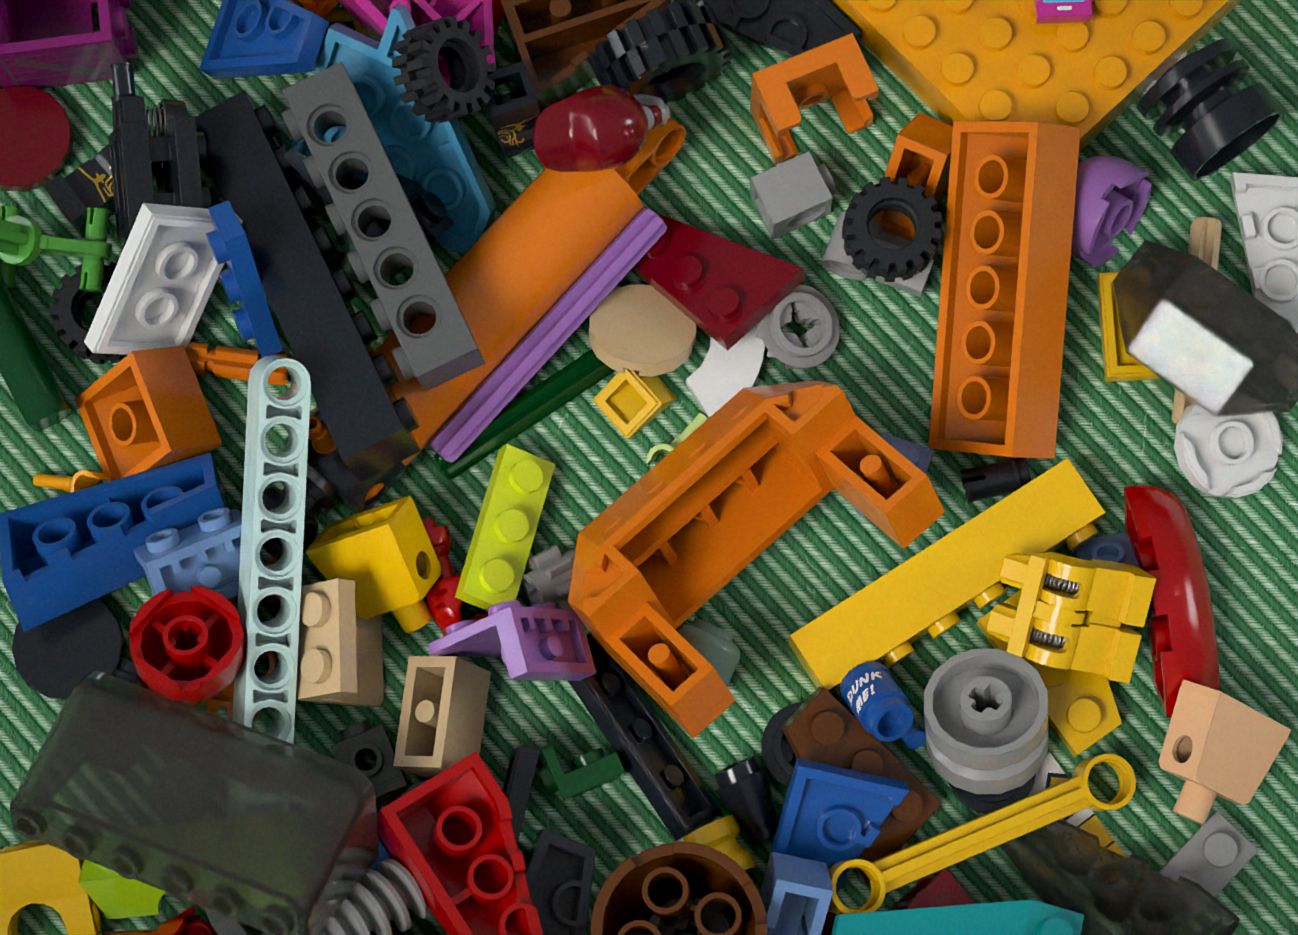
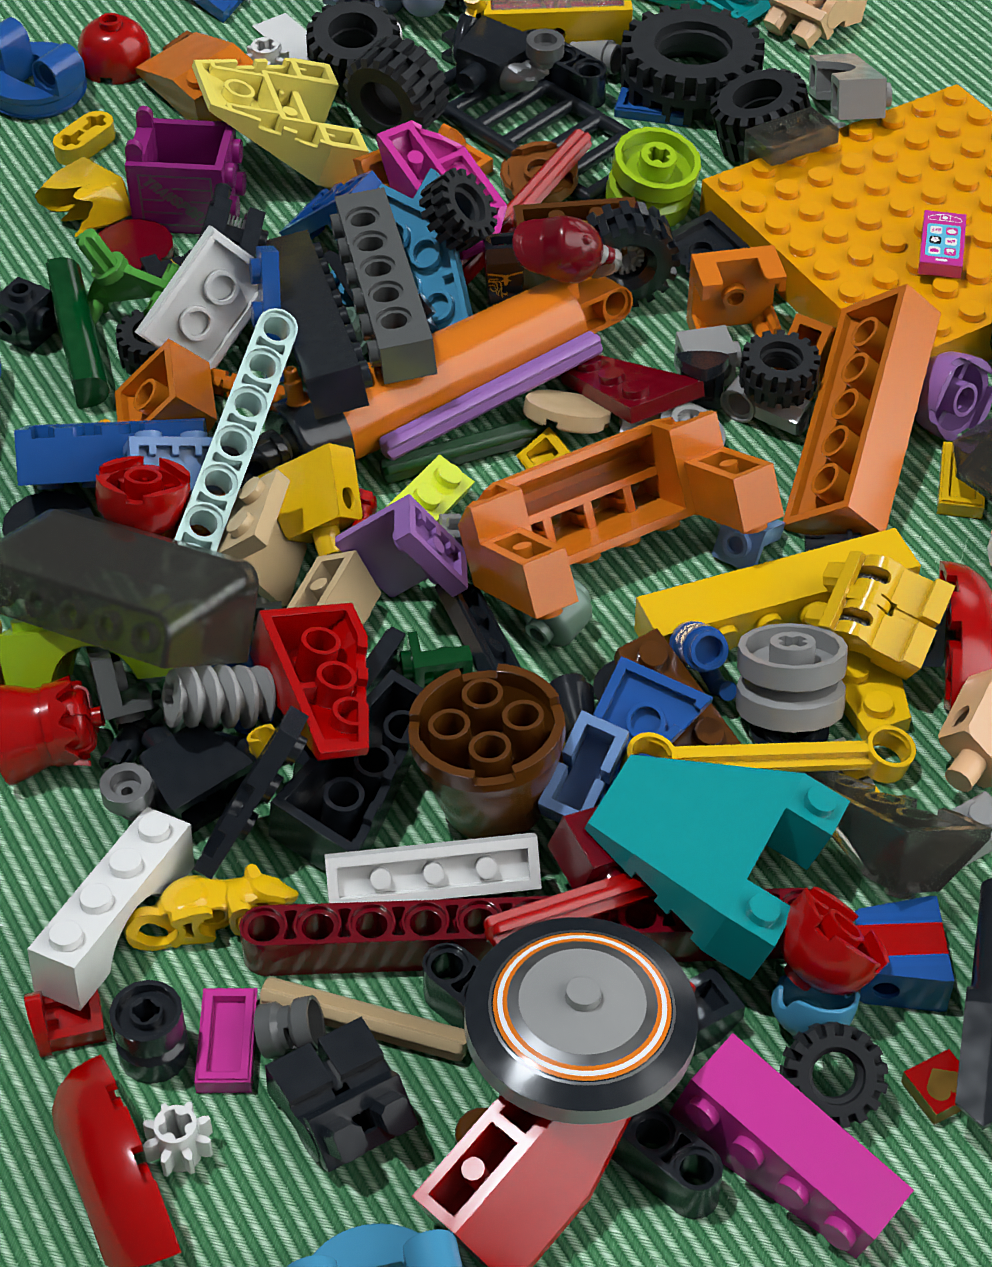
camera: 10 degrees right, 30 degrees down
(796, 238) = (706, 367): none -> black tile

